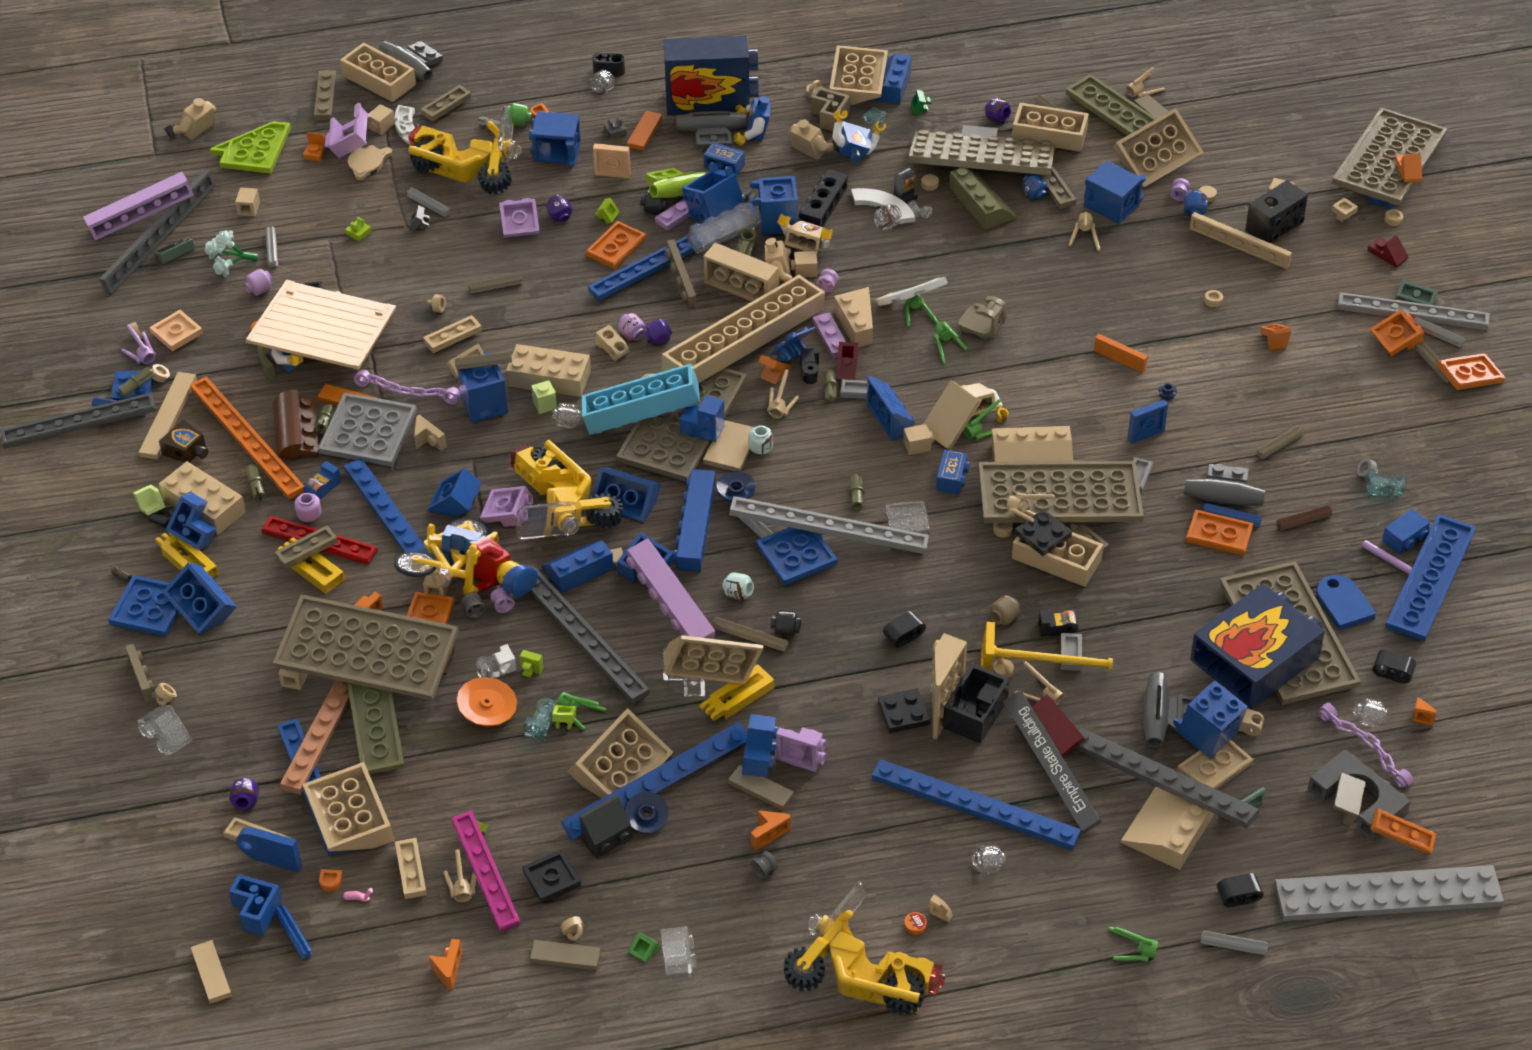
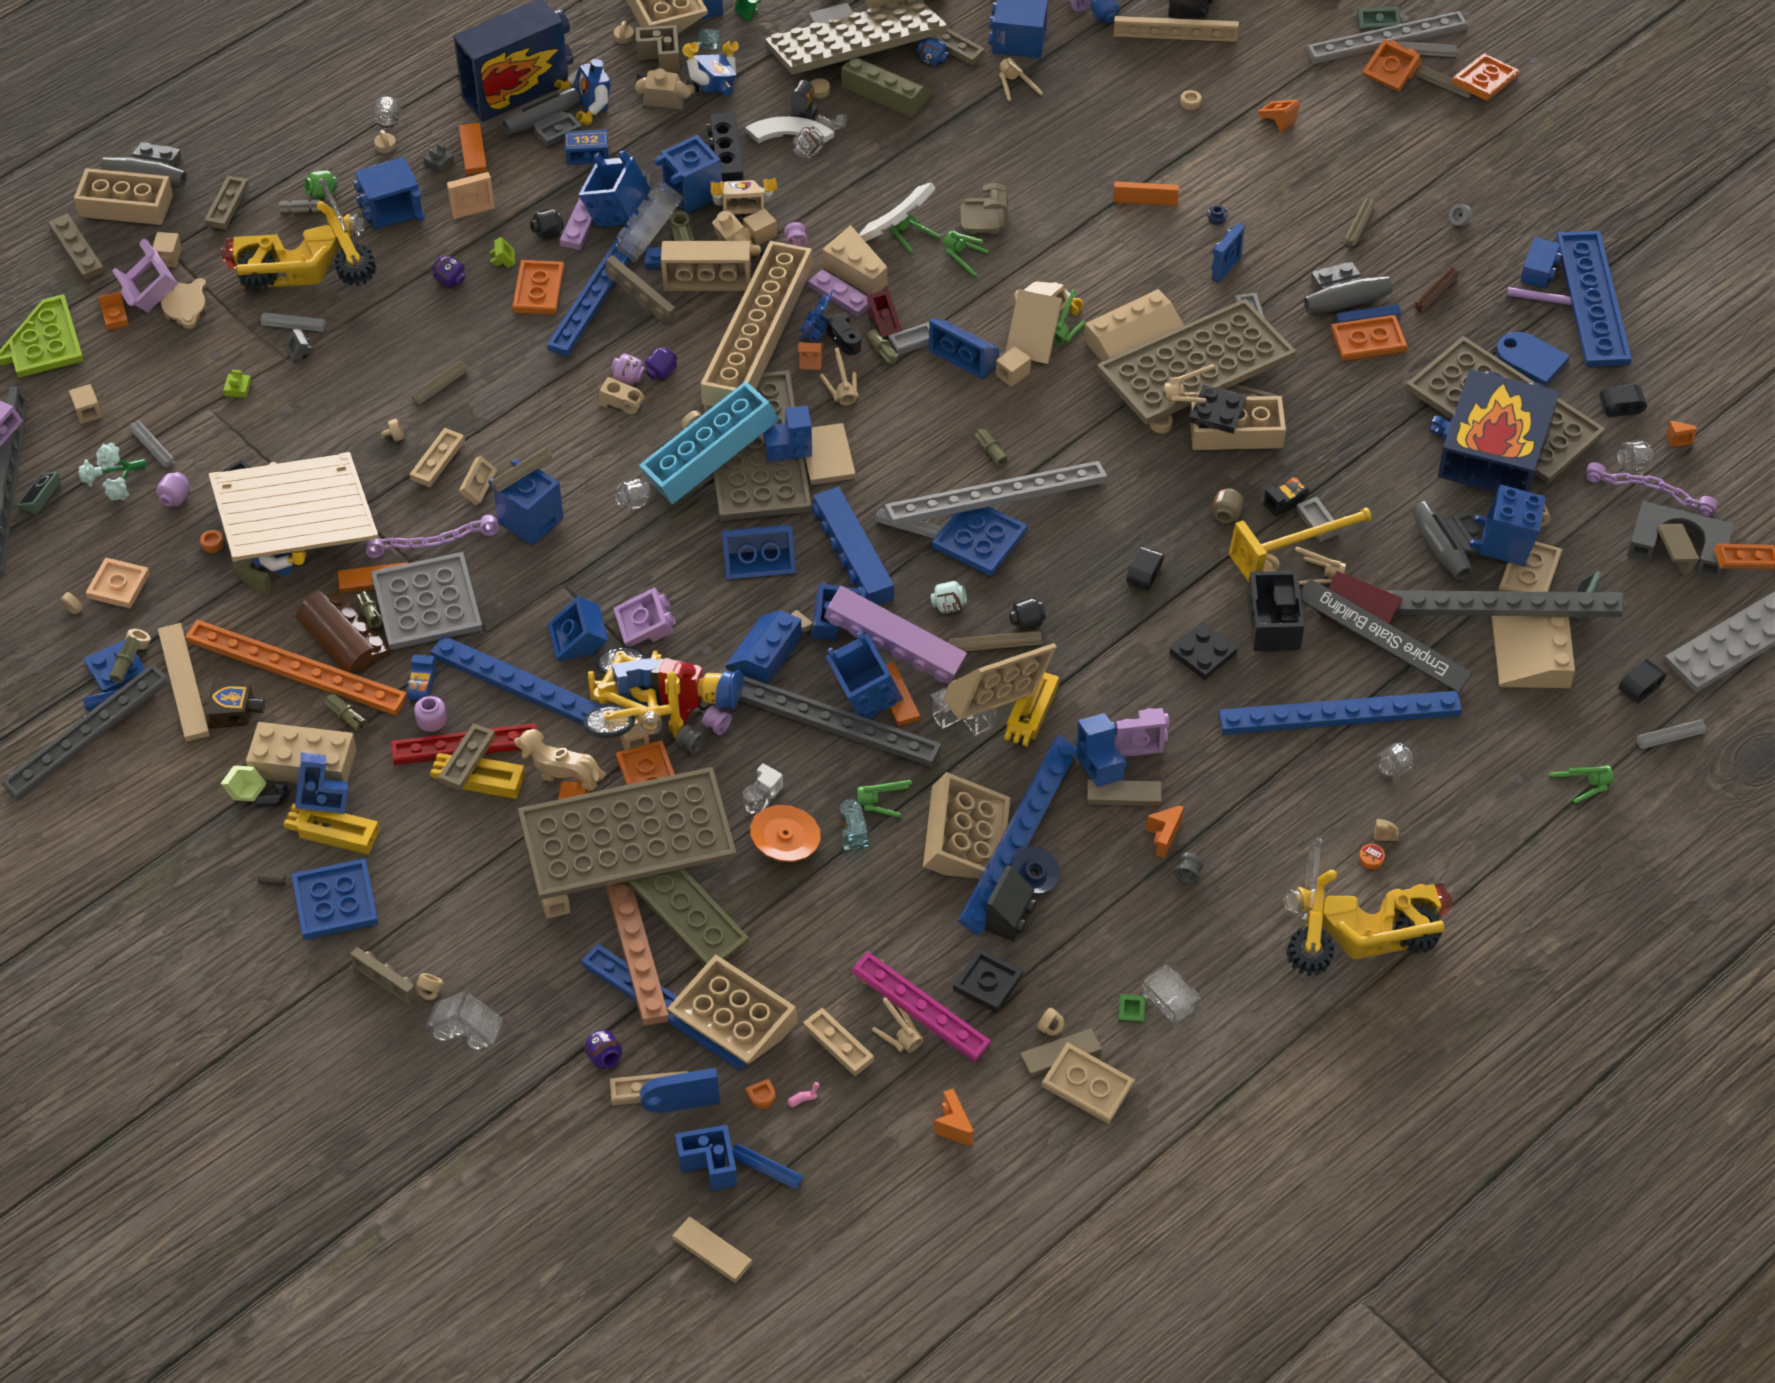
camera: 30 degrees left, 5 degrees up
(145, 354) = (101, 623): lavender plant -> none
(199, 598) = (389, 865): blue slope -> none
(363, 577) = (559, 761): none -> tan animal
(404, 122) = (197, 247): white tile -> none
(427, 432) = (496, 575): tan slope -> none
(519, 217) = (413, 299): lavender plate -> none
(531, 663) = (798, 772): lime tile -> none
(534, 365) = (581, 451): tan brick -> none
(537, 108) = (341, 171): orange tile -> none
(544, 397) = (593, 484): yellowish green brick -> none
(563, 714) = (876, 809): lime tile -> none
(566, 986) = (1088, 1083): none -> tan tile
(567, 494) = (665, 566): piece -> none
(586, 103) = (385, 142): none -> tan tile
(609, 61) = (376, 87): black beam -> none
(624, 614) = (864, 677): none -> blue container
(647, 640) = (905, 710): none -> orange tile
(669, 182) = (555, 194): lime plate -> none
(736, 484) = (868, 494): dark blue dish -> none
(760, 440) = (858, 434): light aqua head -> none
(908, 516) = (1060, 451): clear tile -> none
(948, 670) = (1240, 602): tan slope -> none
(952, 471) = (1072, 385): blue brick -> none
(1385, 485) = (1487, 225): clear light blue leg -> none

